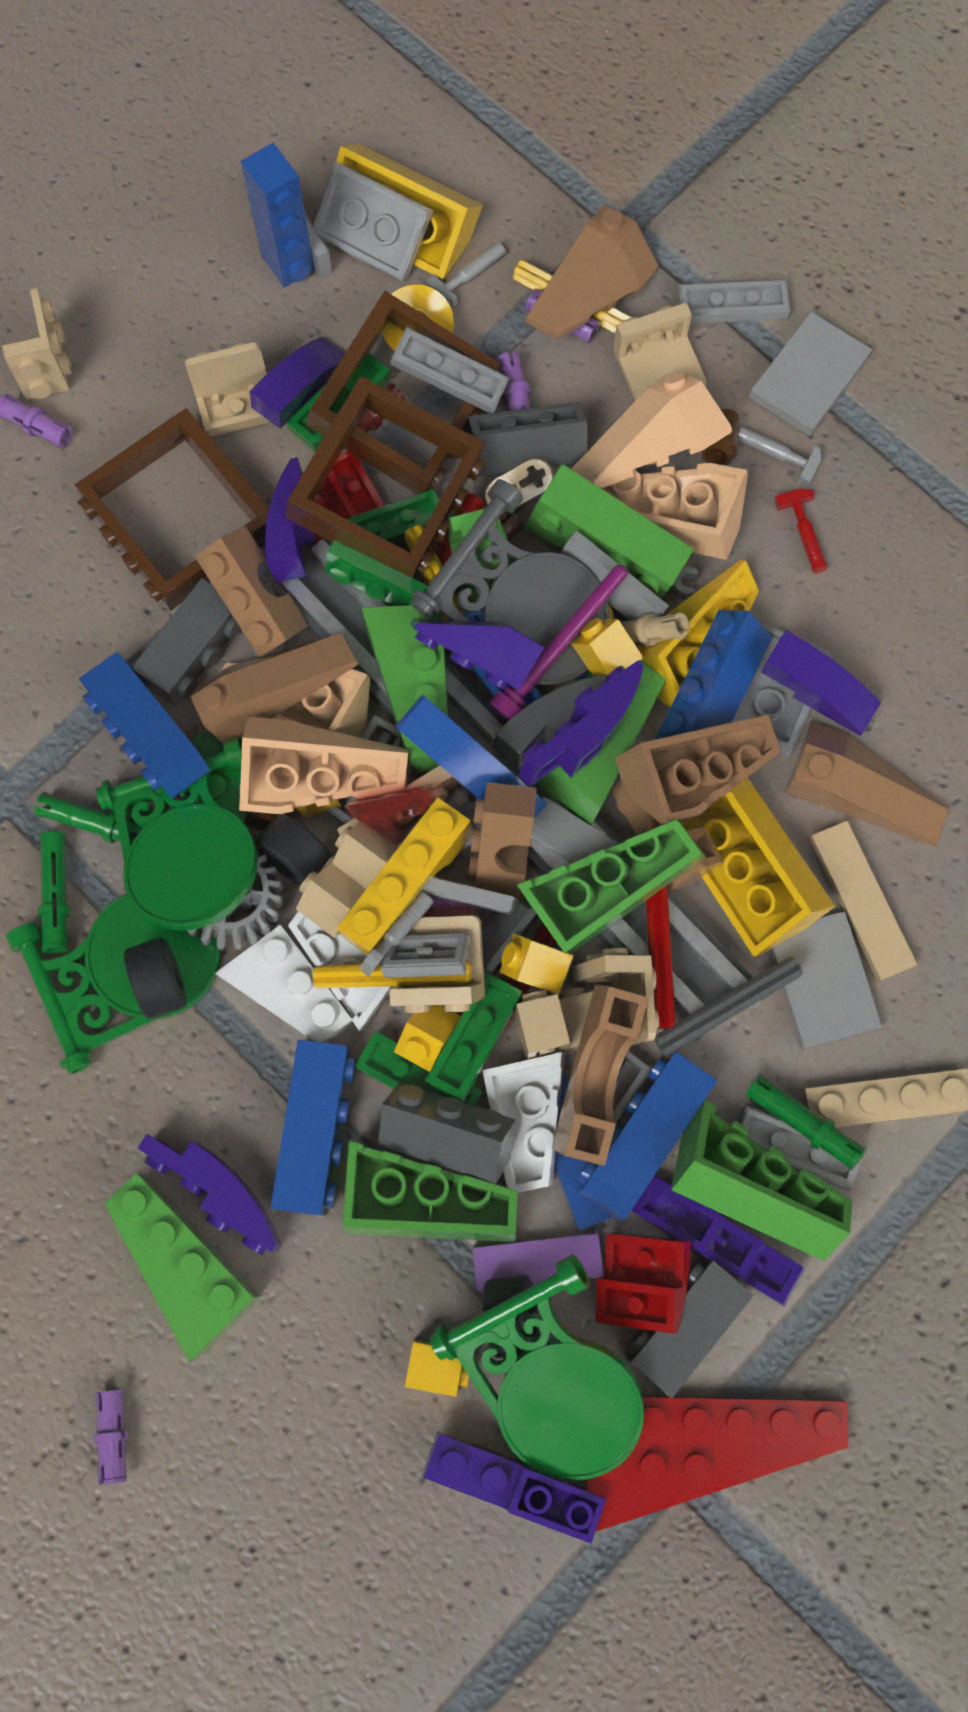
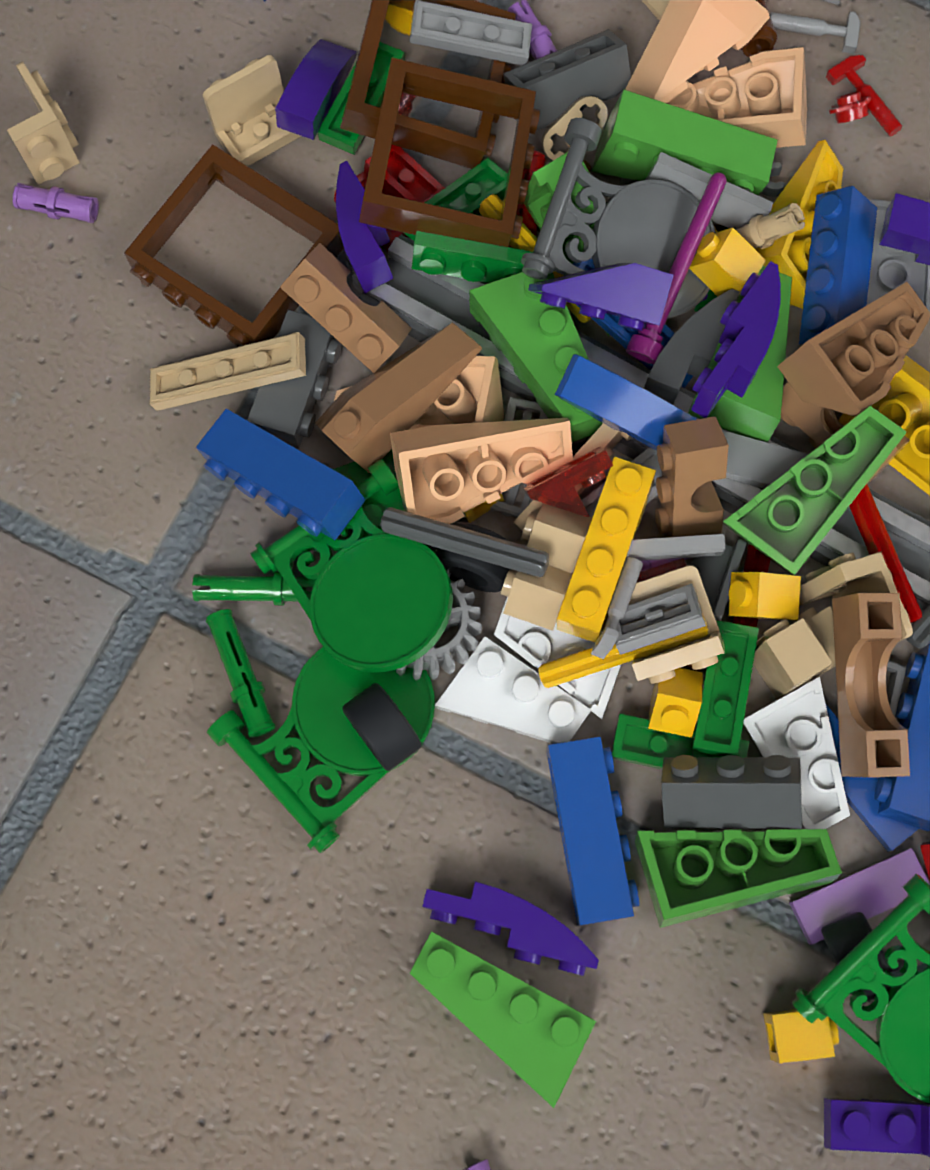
camera: 15 degrees left, 0 degrees up
(130, 618) = (228, 371): none -> tan tile
(279, 834) = (465, 542): none -> dark grey axle
(783, 536) = (850, 107): none -> red plate

